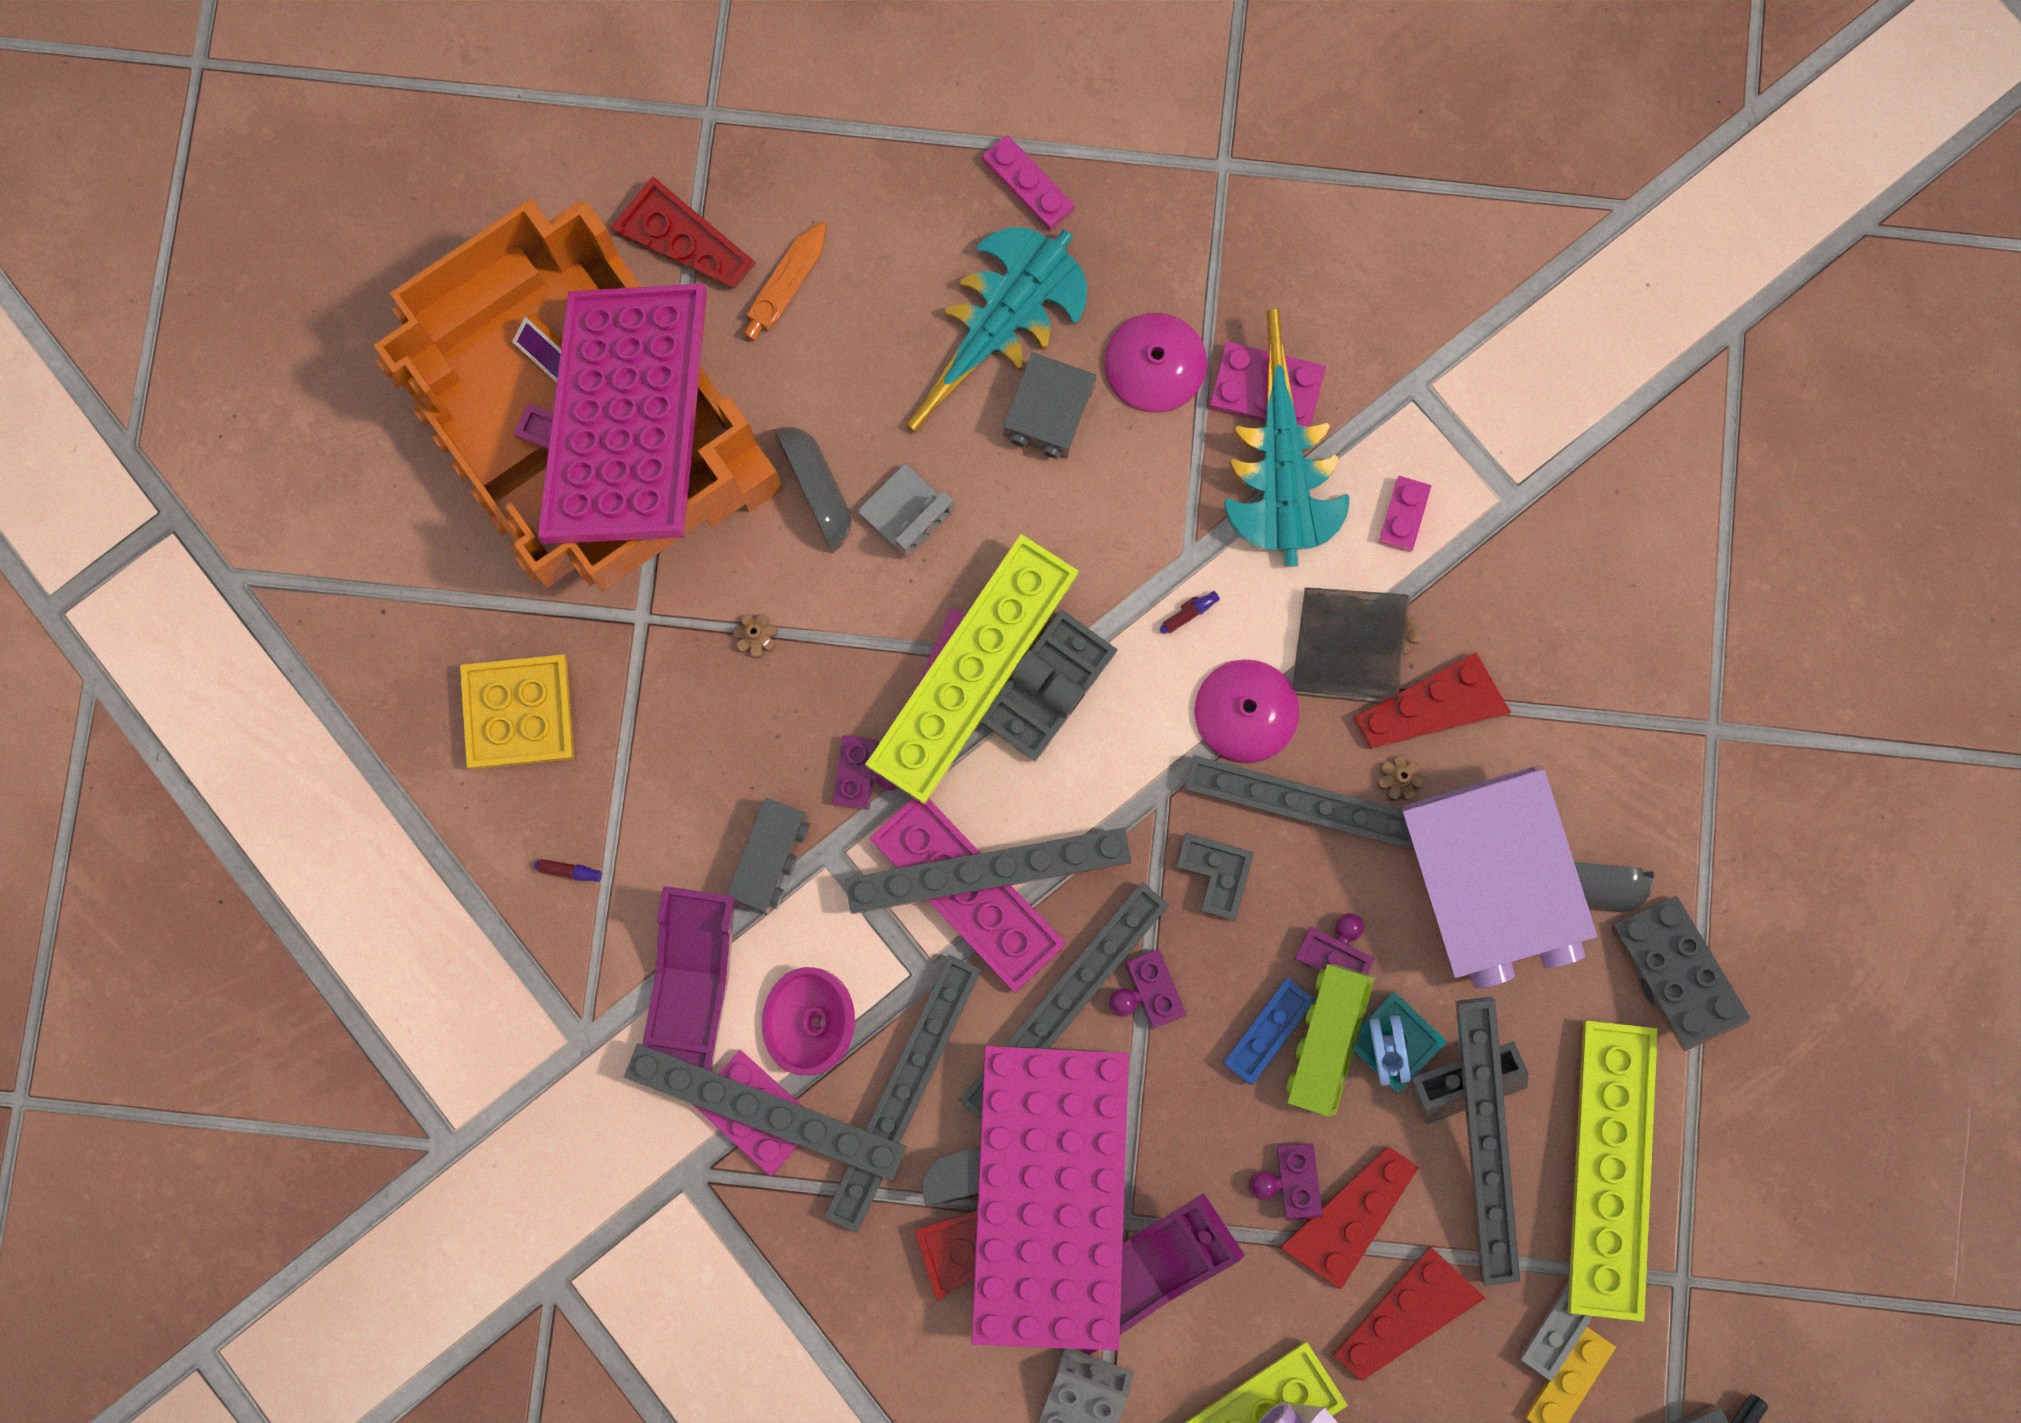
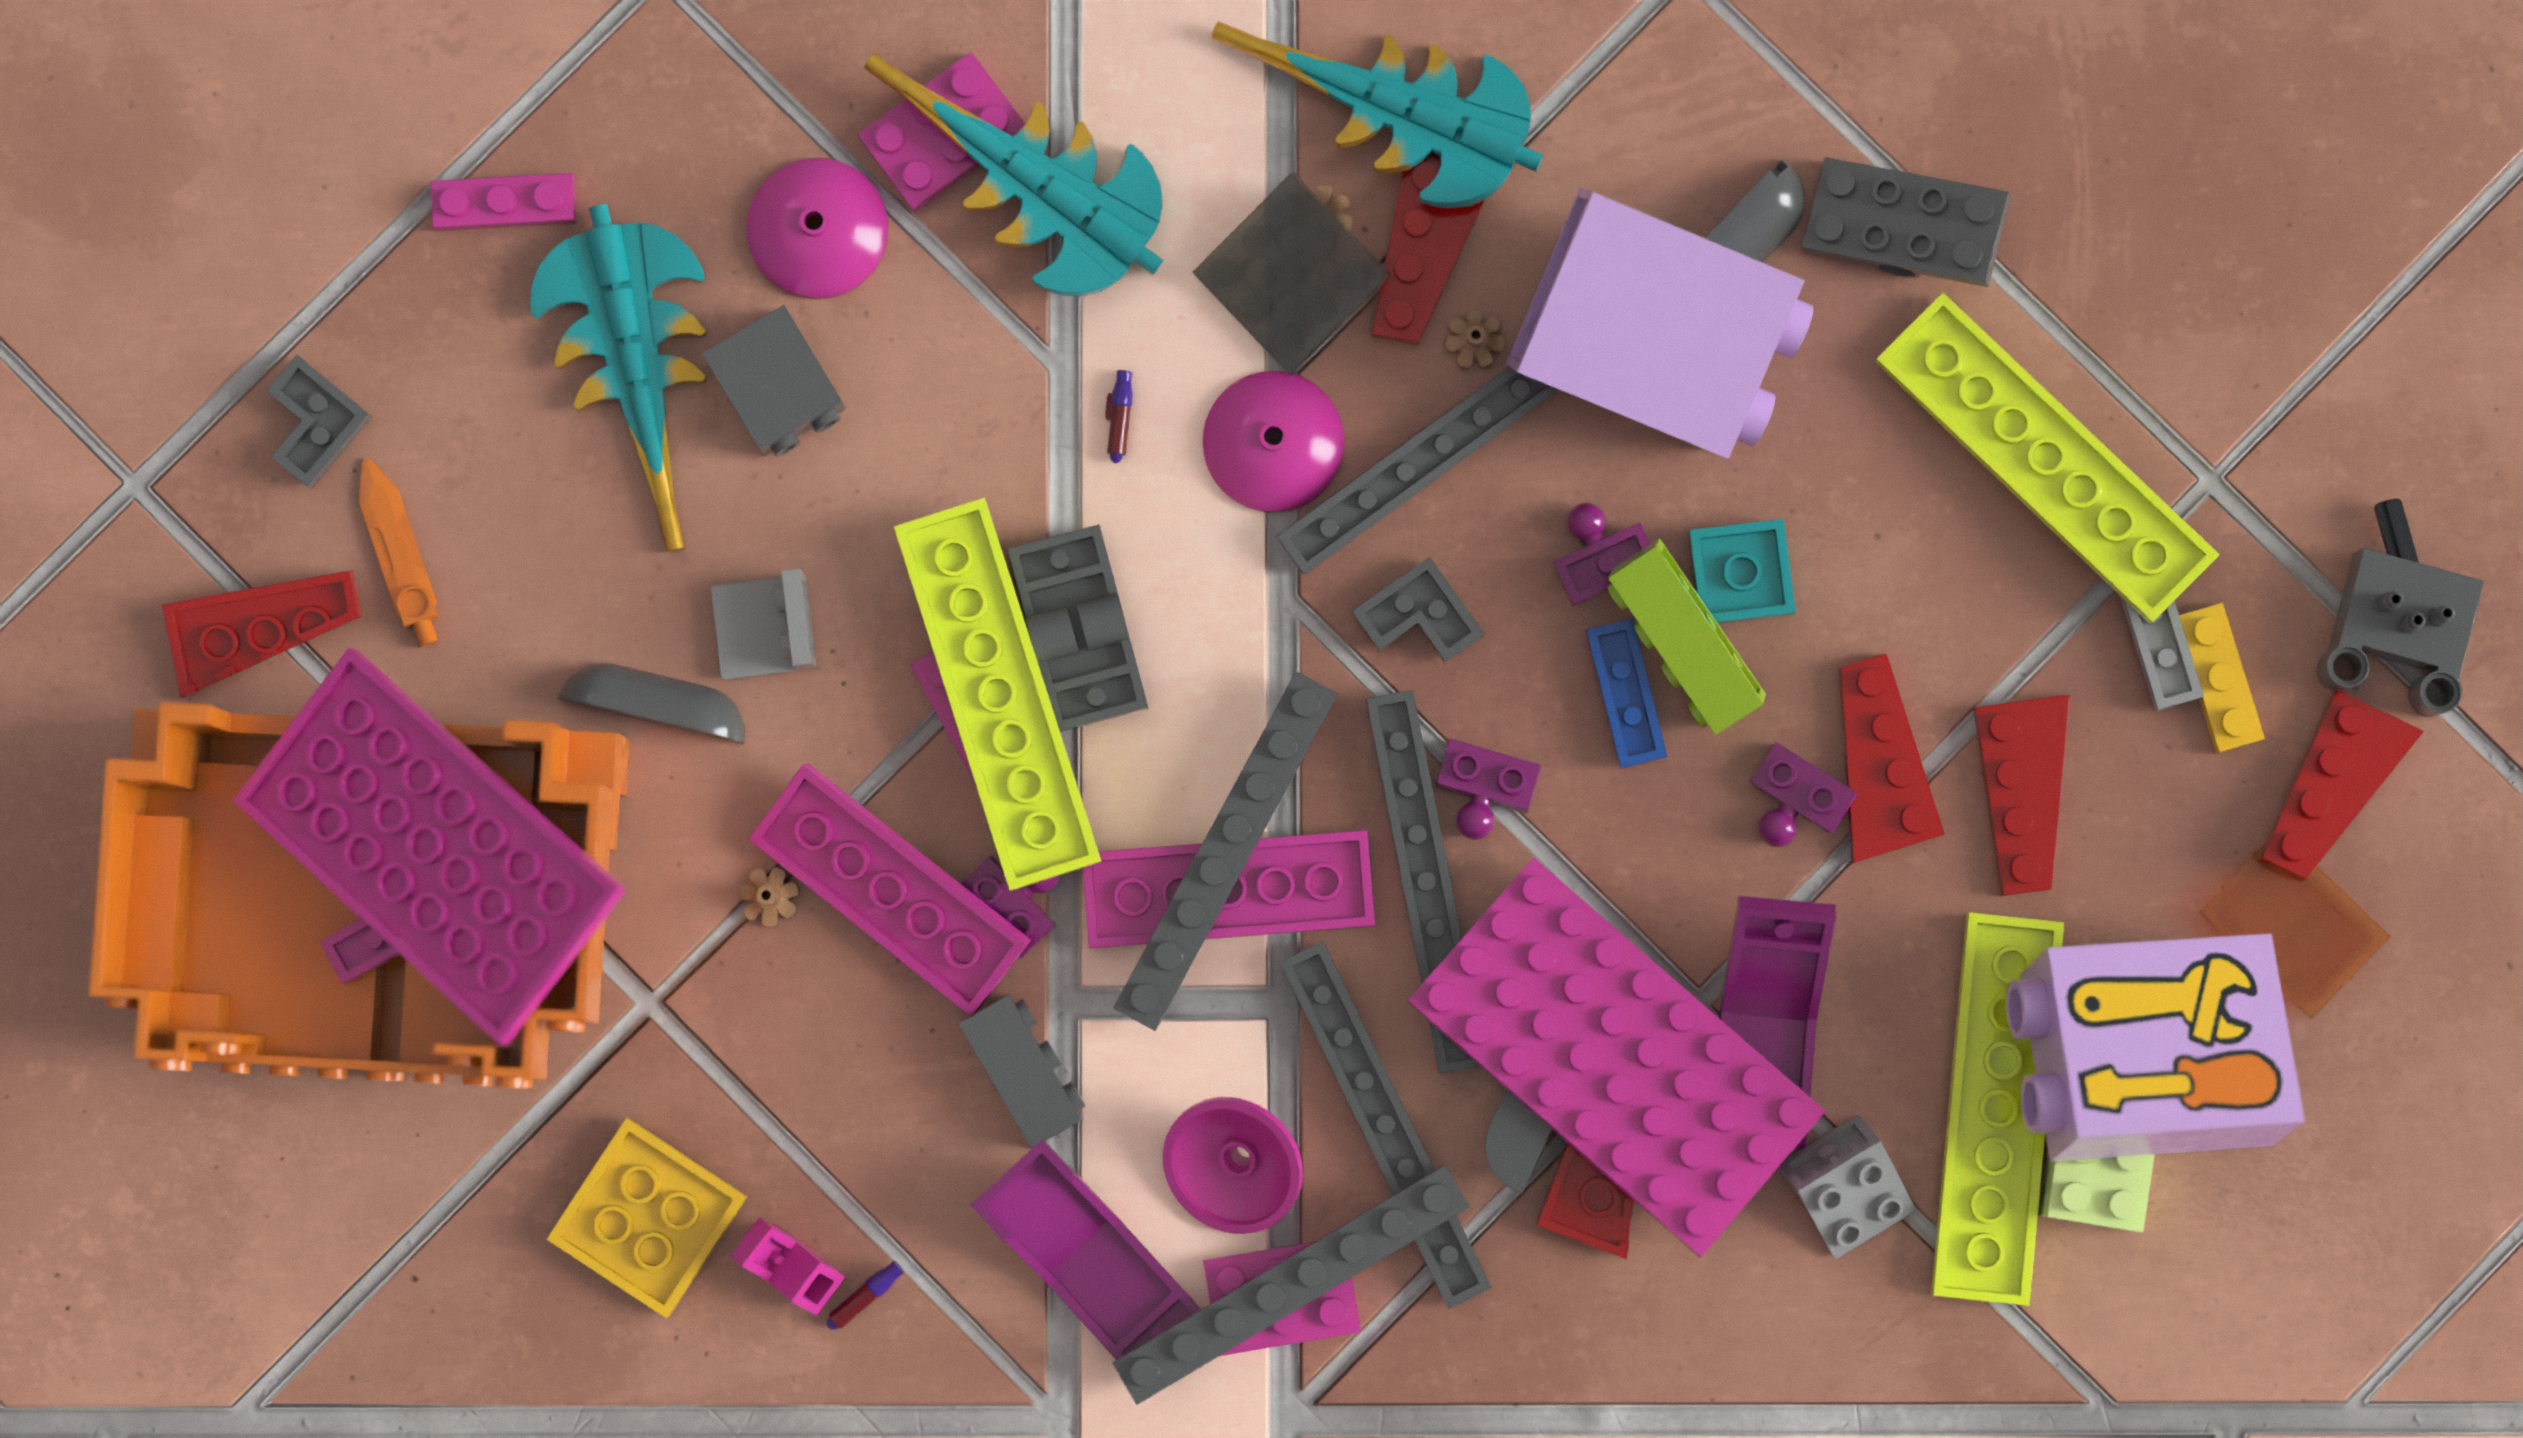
camera: 50 degrees left, 5 degrees up
(539, 345) = (268, 877): tile -> none
(551, 811) = (788, 1265): none -> dark pink brick
(812, 698) = (889, 889): none -> dark pink plate
(828, 184) = (327, 421): none -> dark grey plate
(1390, 1051) = (1748, 587): light blue head -> none
(1405, 513) = (1198, 100): dark pink plate -> none
(1442, 1093) = (1844, 530): dark grey brick -> none
(1487, 1140) = (1916, 561): dark grey plate -> none
(1515, 684) = (1473, 136): none -> teal animal

